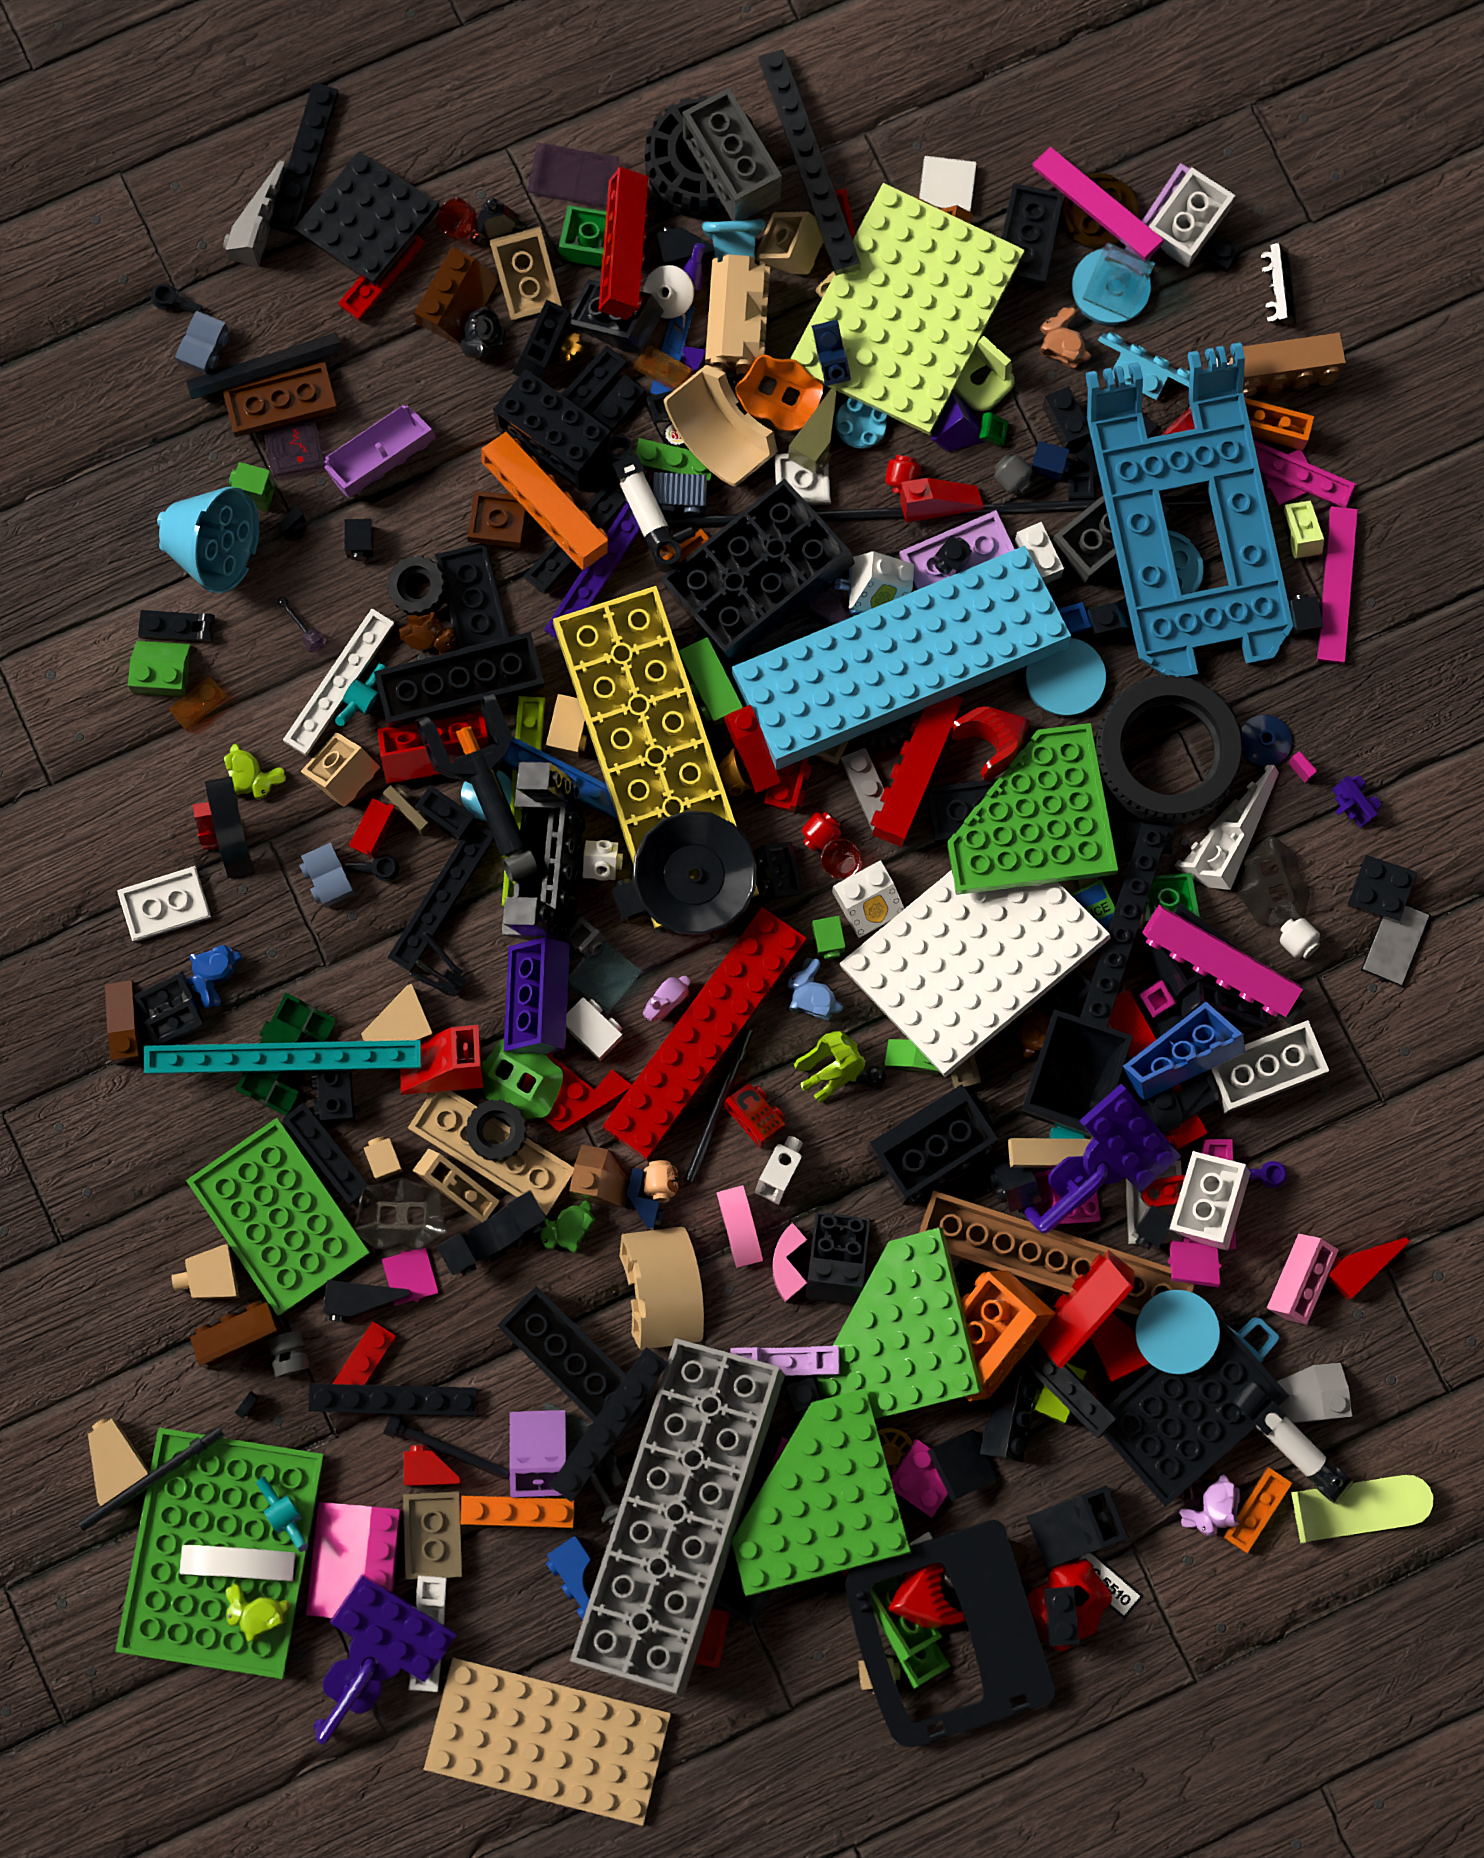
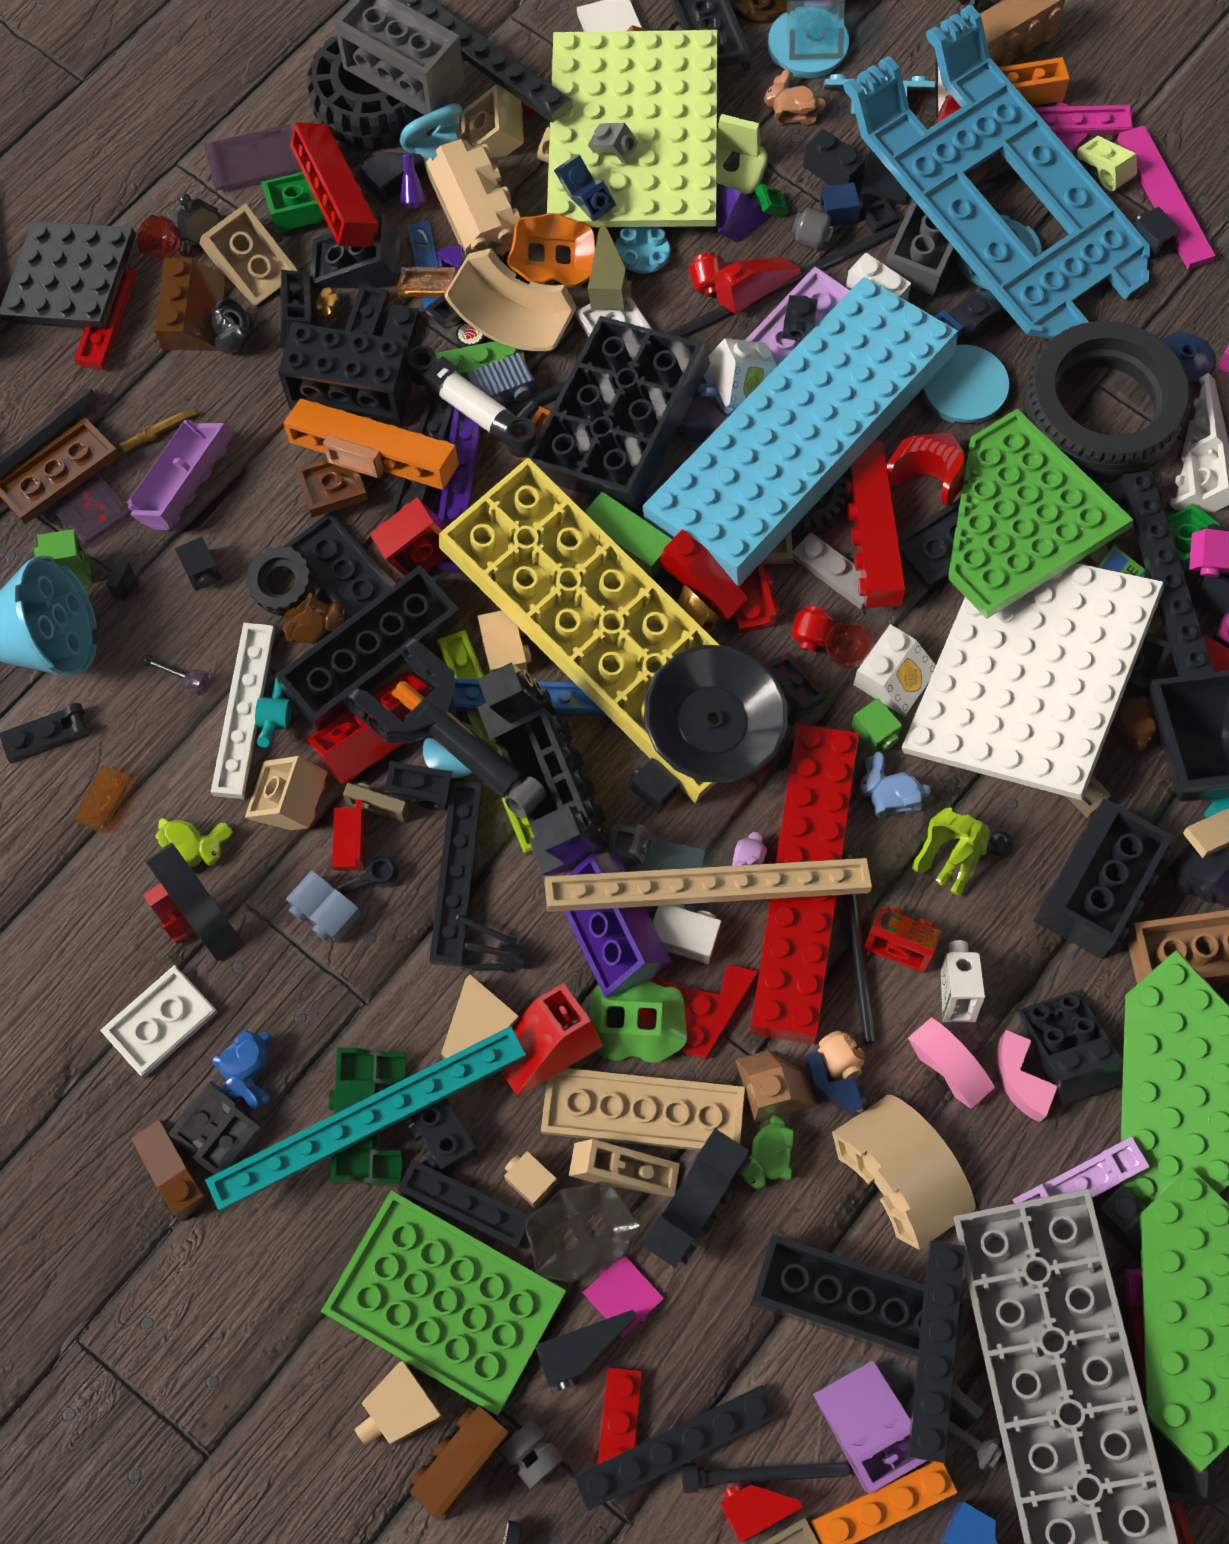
camera: 20 degrees left, 10 degrees down
(159, 669) = (45, 783): bright green slope -> none
(373, 399) = (152, 432): none -> pearl gold piece
(500, 1151) = (639, 1111): black tyre -> none
(523, 507) = (353, 456): none -> nougat tile
(535, 604) = (411, 538): none -> red brick
(601, 860) = (606, 757): white brick -> none
(620, 1005) = (706, 885): none -> tan plate
(679, 286) = (410, 208): white dish -> none
(877, 319) = (614, 139): none -> dark grey bracket
(906, 1056) = (1026, 804): bright green slope -> none

